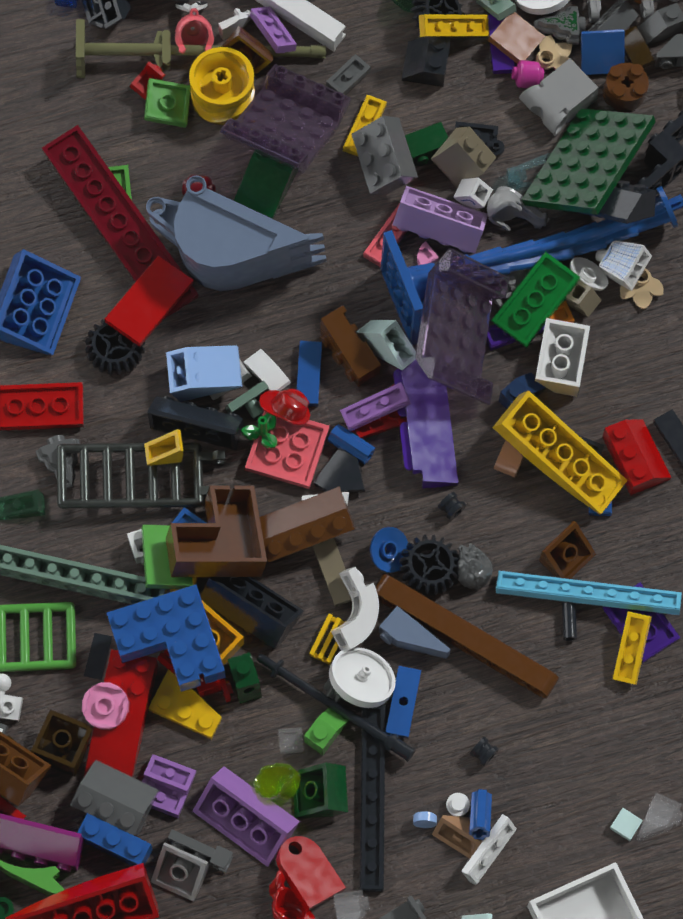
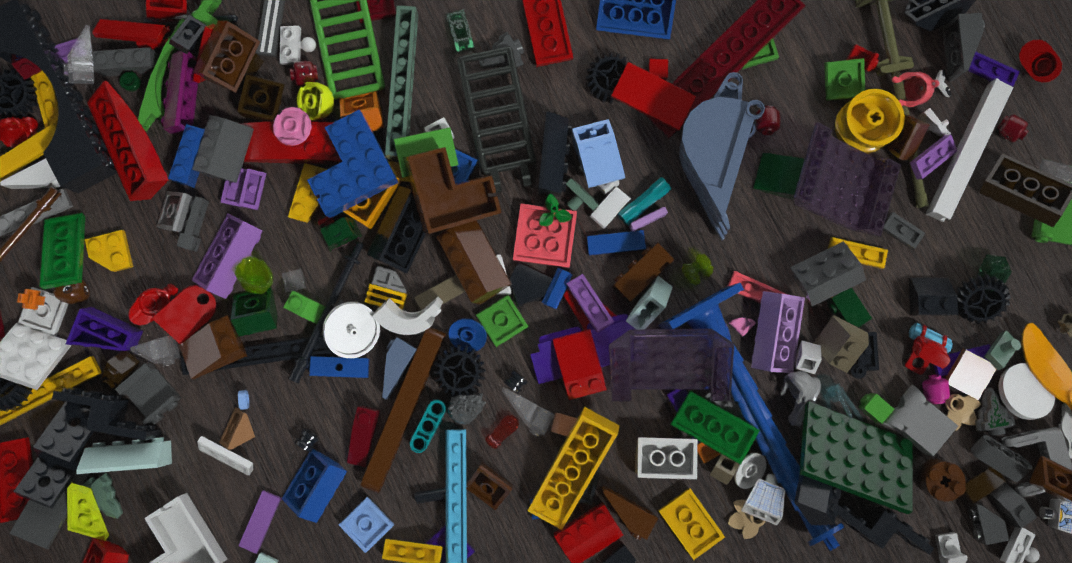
camera: 80 degrees right, 15 degrees up
(38, 691) = (303, 72): none -> dark red head
(75, 678) = (315, 100): none -> neon yellow cylinder
(94, 631) = (369, 106): none -> orange slope
(112, 294) = (659, 67): none -> red tile
(165, 449) = (520, 133): yellow slope -> none
(274, 345) = (644, 201): none -> teal axle
(287, 404) = (578, 227): red piece -> none
(288, 333) = (648, 219): none -> lavender tile
(307, 632) = (388, 279): none -> light grey tile
(350, 287) = (701, 264): none -> clear neon green piece
(357, 844) = (212, 348): none -> reddish brown slope
(377, 510) = (502, 320): none -> bright green tile
(444, 430) = (579, 364): none -> red slope
(453, 25) = (969, 315): yellow plate -> none
(458, 804) = (261, 424): white plate -> none
(479, 71) = (930, 347): none -> red piece
(480, 814) = (250, 444): blue axle -> none
(488, 686) = (362, 435): none -> dark red slope
(489, 496) = (533, 415): none -> clear slope
(492, 620) = (425, 435): none -> teal beam
(504, 528) = (503, 430): none -> clear red piece
(518, 386) = (629, 426): dark blue slope -> none
(538, 137) = (875, 407): none -> bright green brick
(538, 751) = (313, 486): none -> blue slope
(573, 822) = (260, 521): none -> medium lavender tile
(593, 698) = (366, 524): none -> light blue plate
(602, 50) = (973, 454): blue tile -> none
(619, 403) = (635, 517): none -> reddish brown slope
(639, 345) = (691, 523): none -> yellow plate

